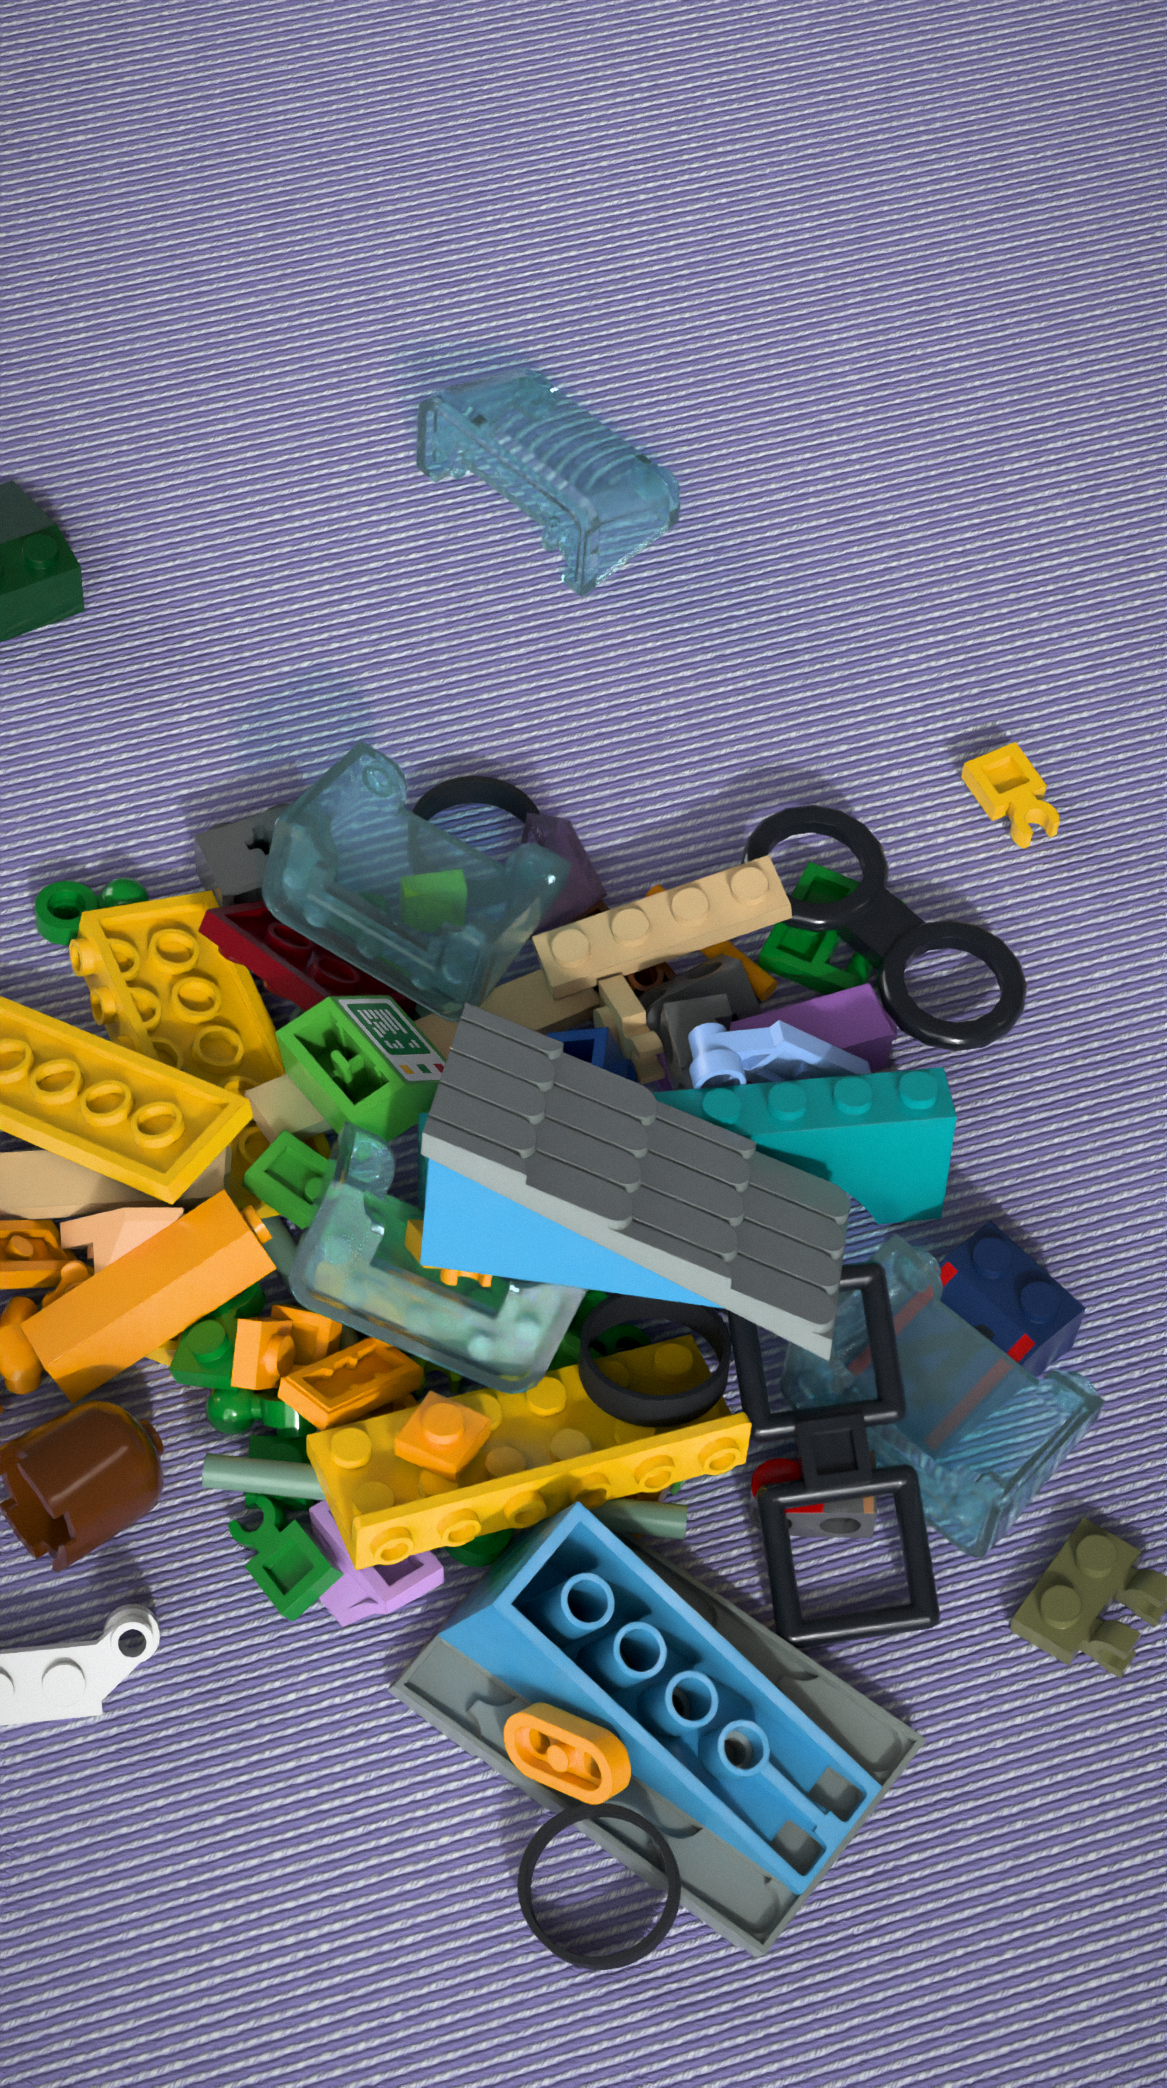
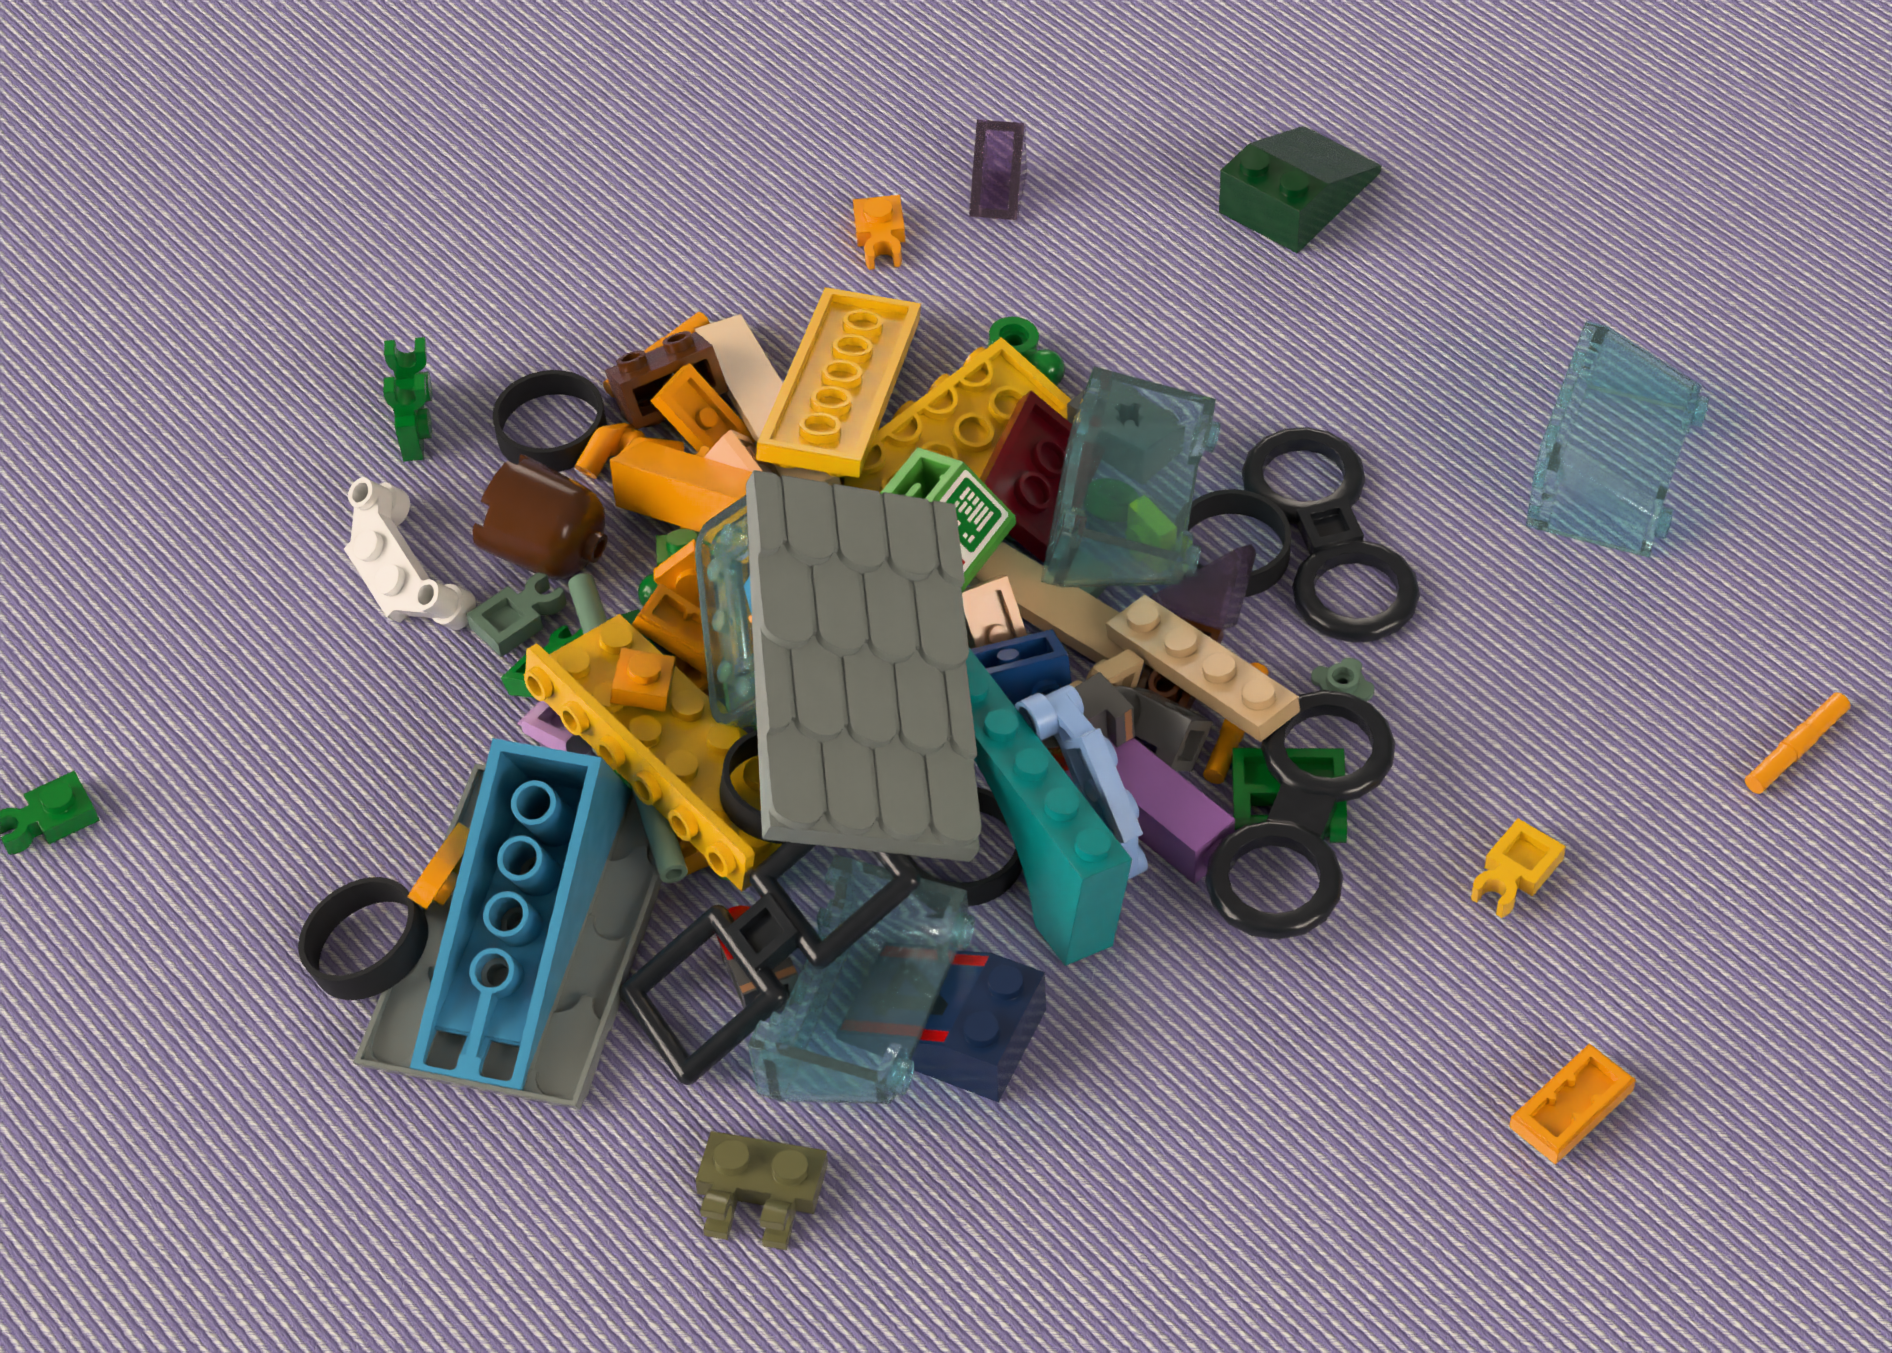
camera: 75 degrees right, 5 degrees down
(184, 1574) = (512, 617): none -> sand green plate
(520, 751) = (1333, 536): none -> black bar
(710, 844) = (1346, 672): none -> sand green plate
(967, 520) = (1797, 743): none -> light orange piece

